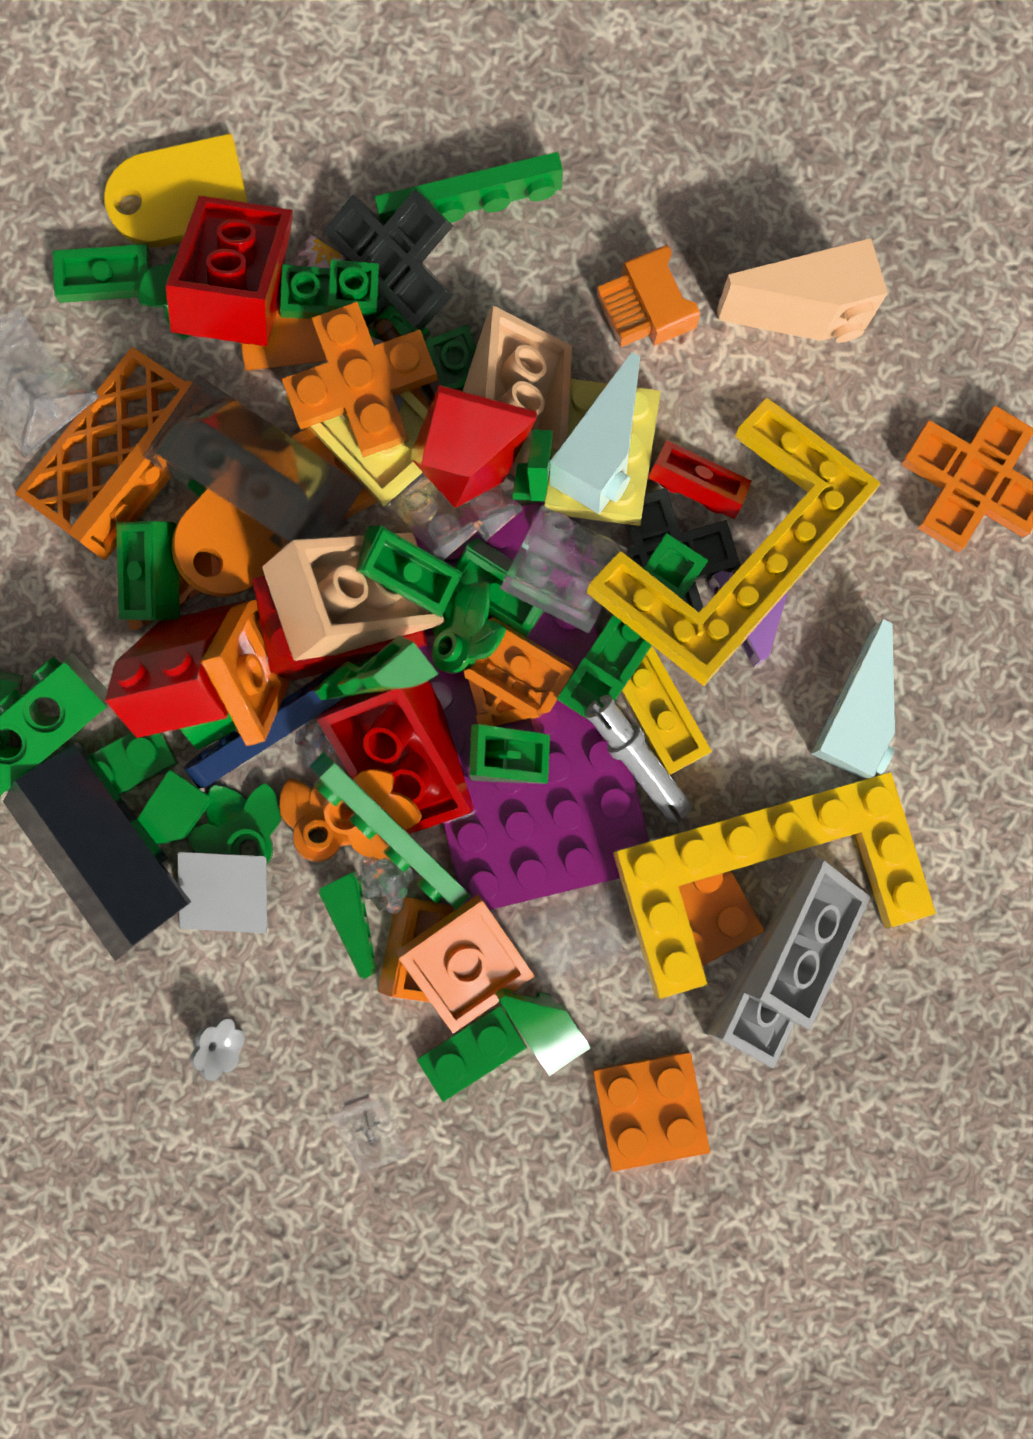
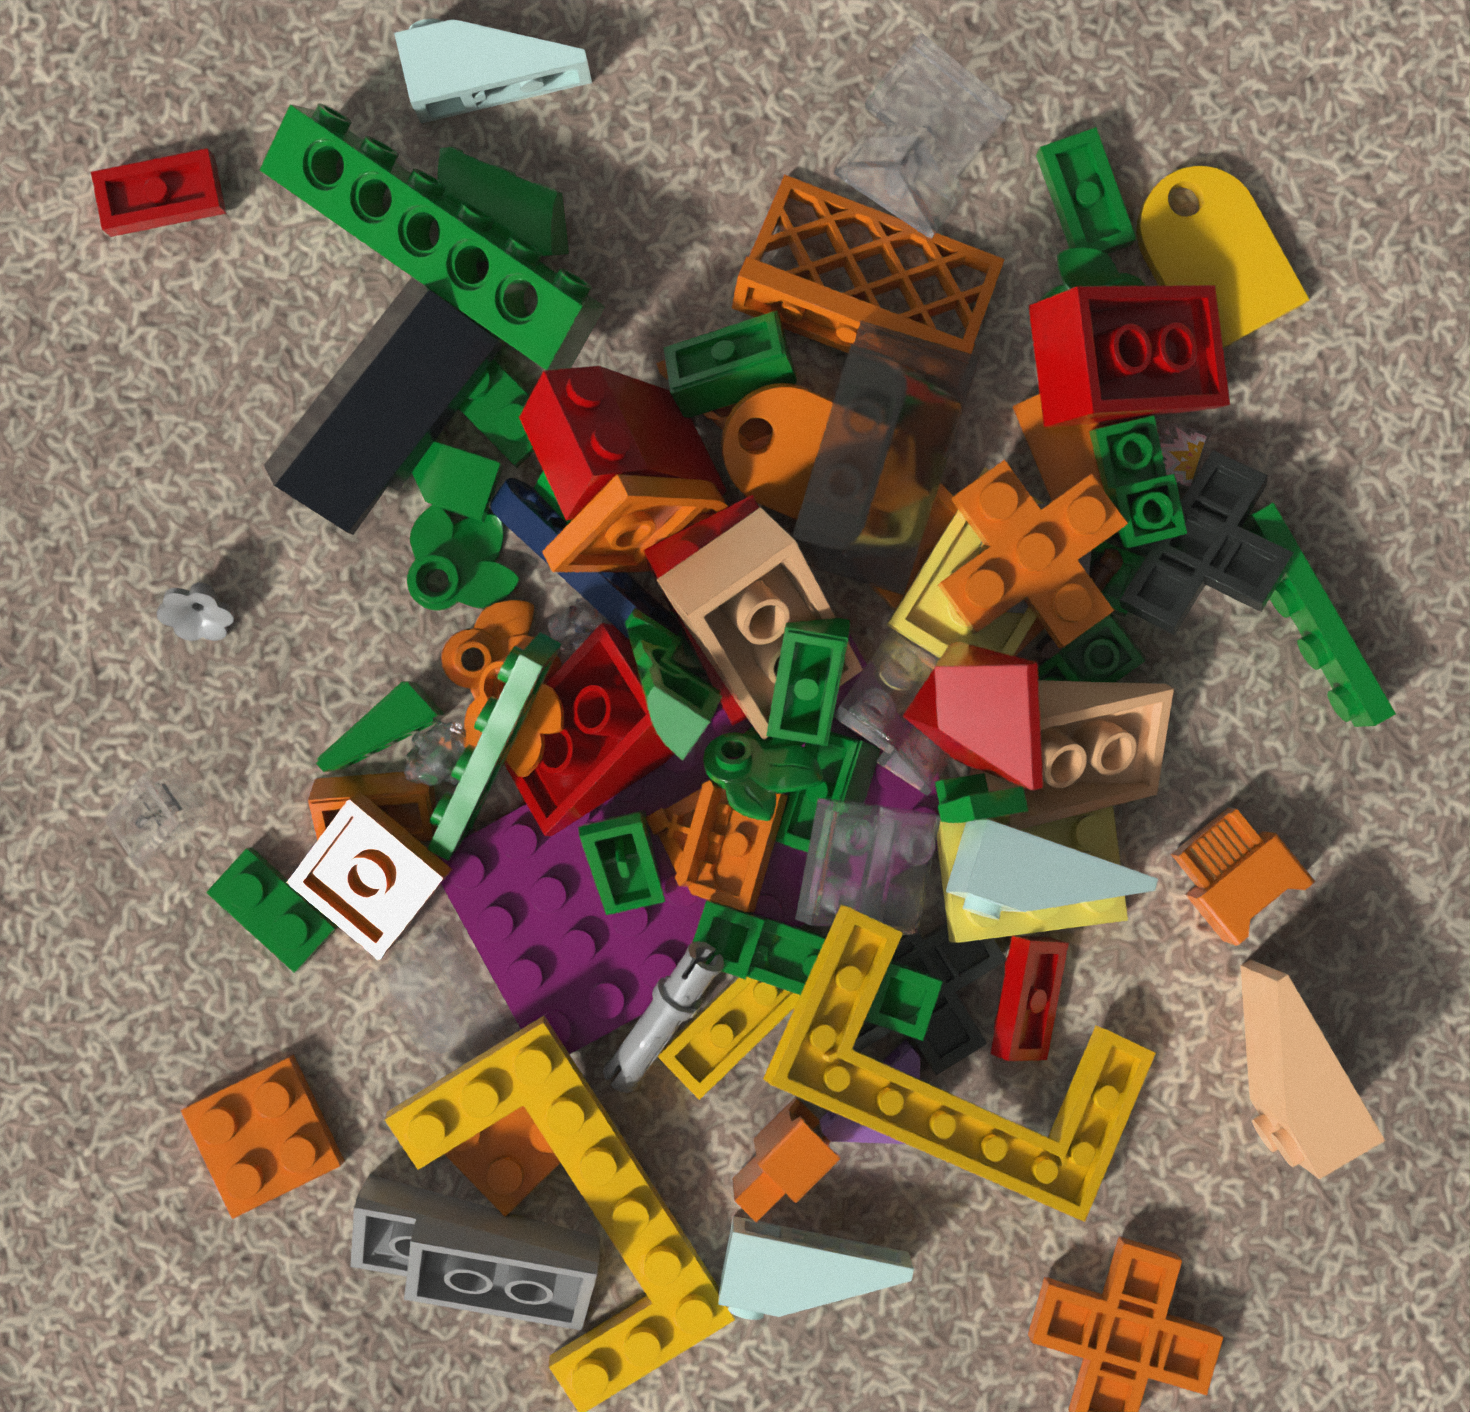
camera: 75 degrees right, 5 degrees up
(224, 892) = (378, 567): light grey sticker -> none
(545, 1028) = (322, 987): slope -> none
(772, 691) = (786, 1161): none -> orange piece

